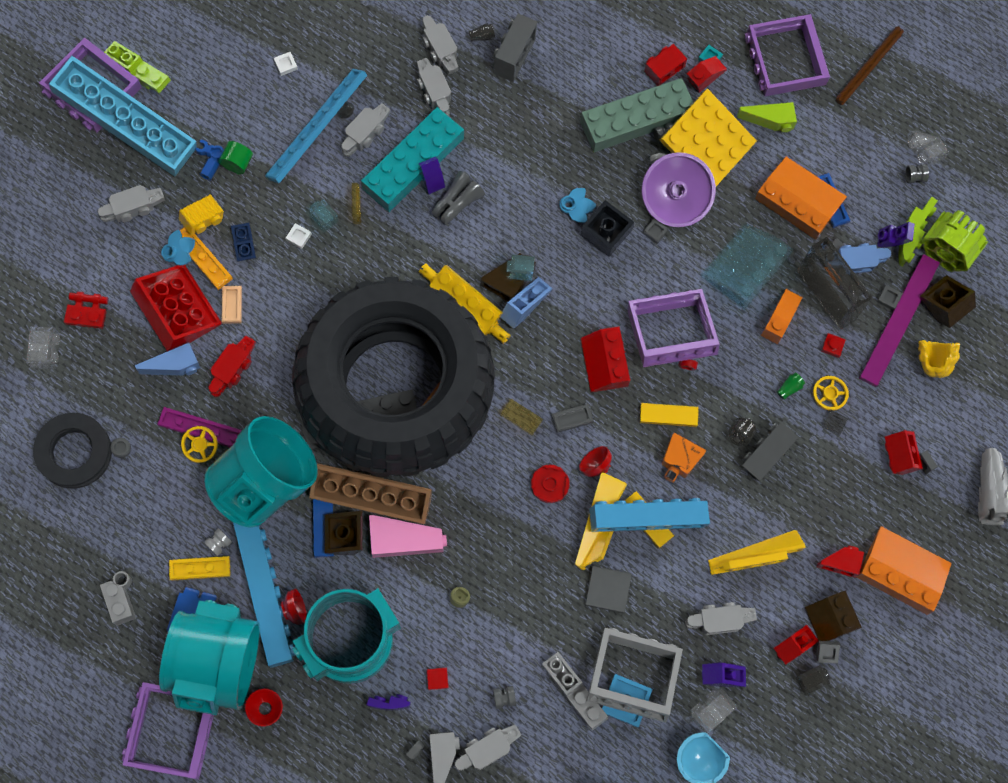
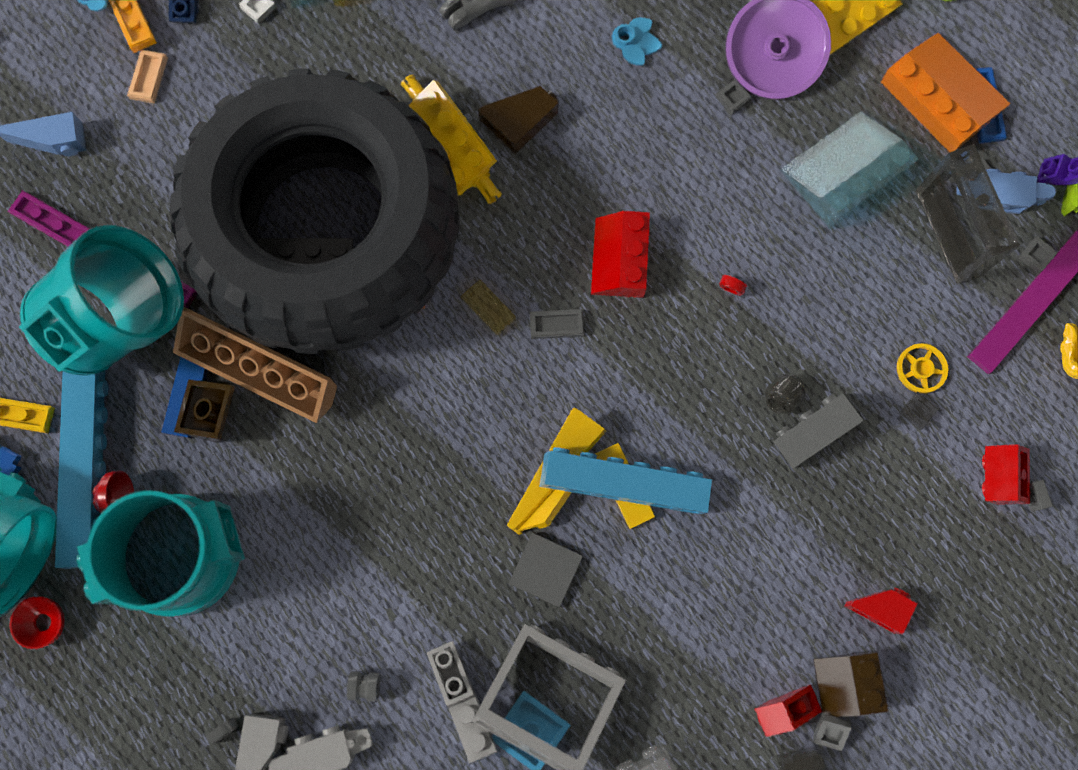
camera: 20 degrees right, 5 degrees up
(174, 306) = (72, 61): red slope -> none
(199, 444) = (50, 248): yellow wheel -> none
(219, 540) = (41, 383): light grey wheel -> none
(230, 365) = (121, 155): red hinge -> none
(395, 703) = (212, 658): dark purple slope -> none
(401, 538) = (279, 434): bright pink slope -> none
(437, 679) = (281, 637): red tile -> none
(459, 597) = (340, 533): olive tile -> none
(521, 267) = (535, 103): clear light blue brick -> none
(525, 302) = (531, 154): medium blue slope -> none
(550, 484) = (499, 413): red tile -> none
(596, 462) = (572, 391): red piece -> none
(607, 228) = (667, 77): black brick -> none
(669, 415) = (690, 348): yellow tile -> none
(675, 352) = (725, 265): medium lavender window -> none
(681, 457) = (691, 411): orange torso -> none
(721, 619) = (692, 651): light grey hinge -> none
(724, 675) = (675, 729): dark purple slope -> none
(759, 554) = (772, 569): yellow wedge -> none
(781, 316) = (879, 248): orange slope -> none
(791, 385) = (870, 345): green cone -> none
(833, 345) = (942, 303): red plate -> none
(905, 571) = (970, 643): orange slope -> none

